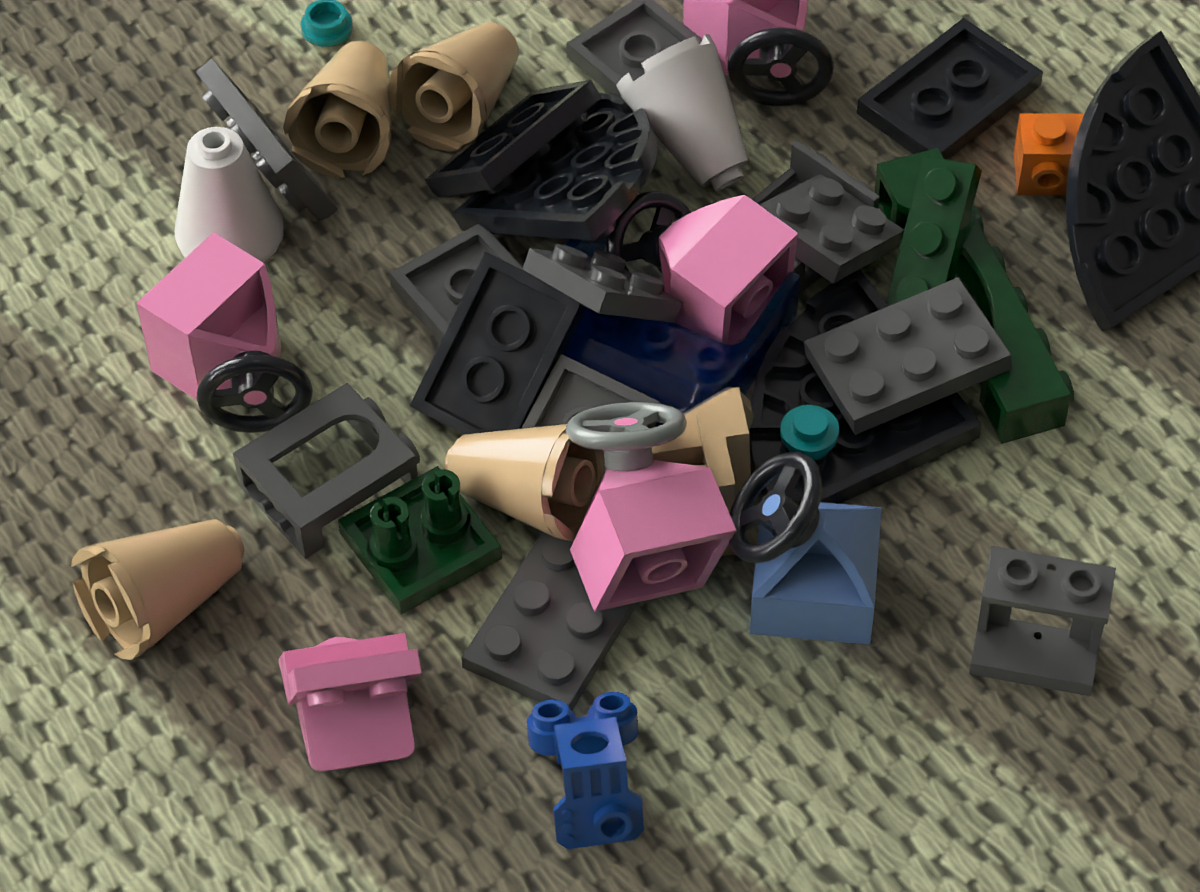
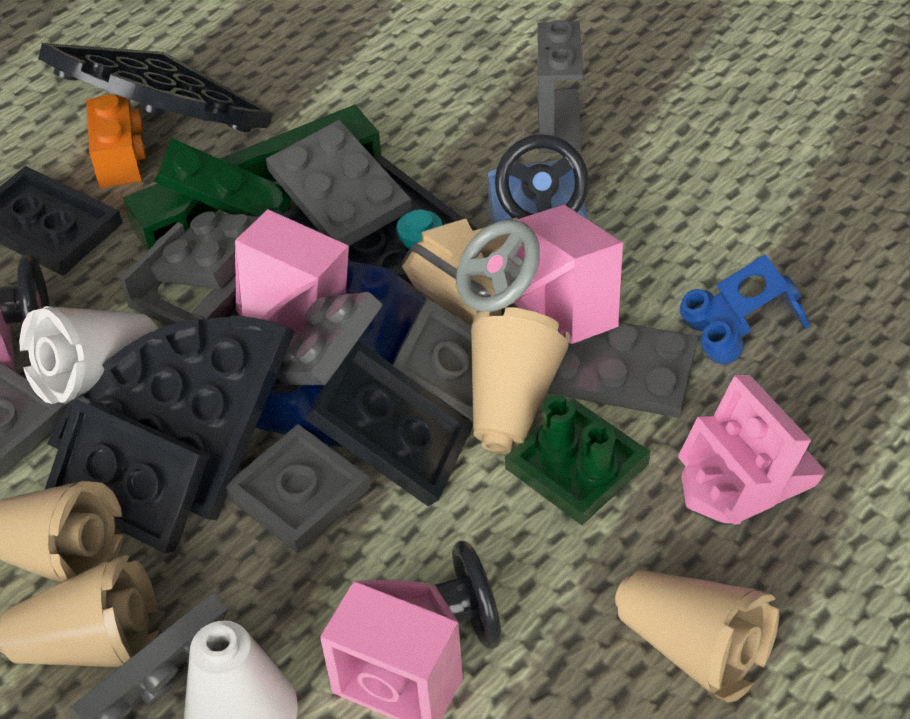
camera: 100 degrees left, 5 degrees down
(303, 517) = (548, 583): dark grey panel -> none

